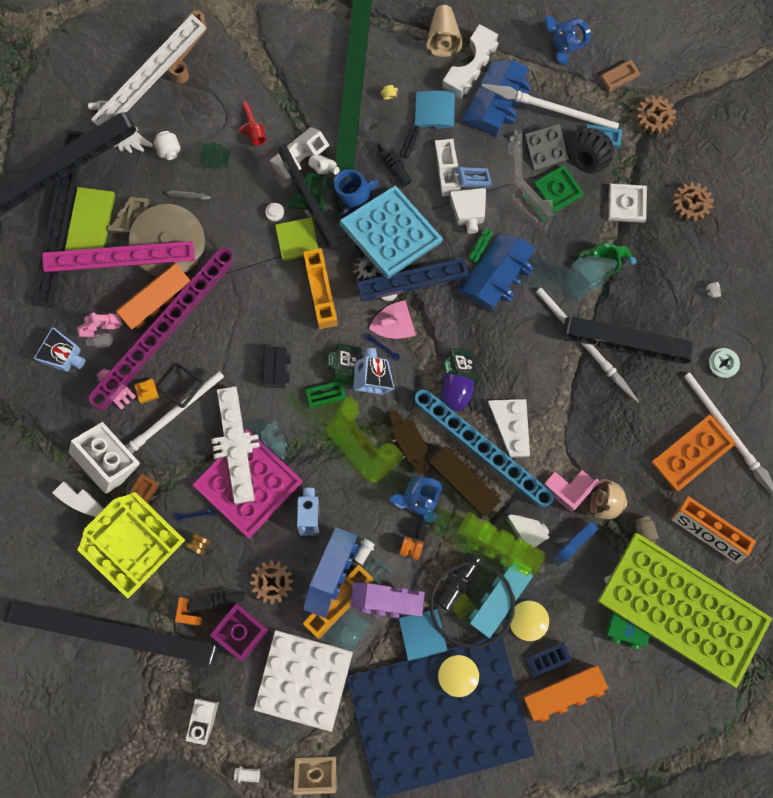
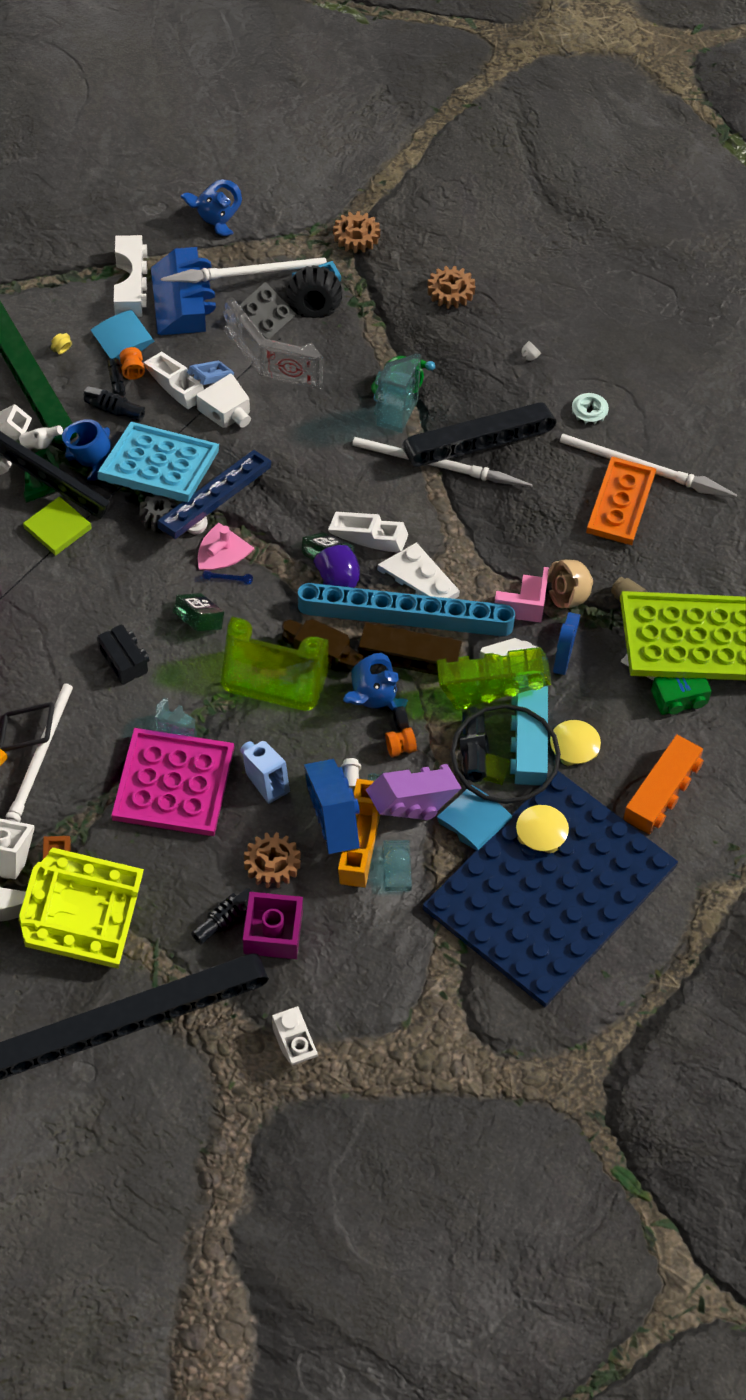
camera: 35 degrees left, 20 degrees down
(182, 610) = (202, 943): orange panel -> none
(198, 544) = (160, 870): pearl gold wheel -> none
(211, 512) = (151, 834): clear blue hinge -> none
(235, 445) = (133, 748): white hinge -> none
(246, 775) = (384, 1068): white pin -> none
(274, 211) = (13, 513): white plate -> none
(303, 680) = (378, 936): white plate -> none
(315, 775) = (463, 1022): tan slope -> none
(320, 288) = (101, 538): light orange arch -> none
(327, 394) = (197, 660): green tile -> none
(372, 374) = (238, 600): torso -> none
(426, 137) = (132, 363): none -> orange wheel
(444, 33) = (83, 262): tan cone -> none
(480, 245) = (262, 430): green axle -> none
(497, 271) = (300, 443): blue piece -> none
(499, 370) = (369, 531): none -> white slope
(559, 188) = (304, 333): green tile -> none
(561, 646) = (629, 750): dark blue slope -> none
(619, 75) = (293, 218): medium nougat tile -> none
(627, 203) = (386, 321): white tile -> none
(713, 530) = (694, 553): orange brick -> none

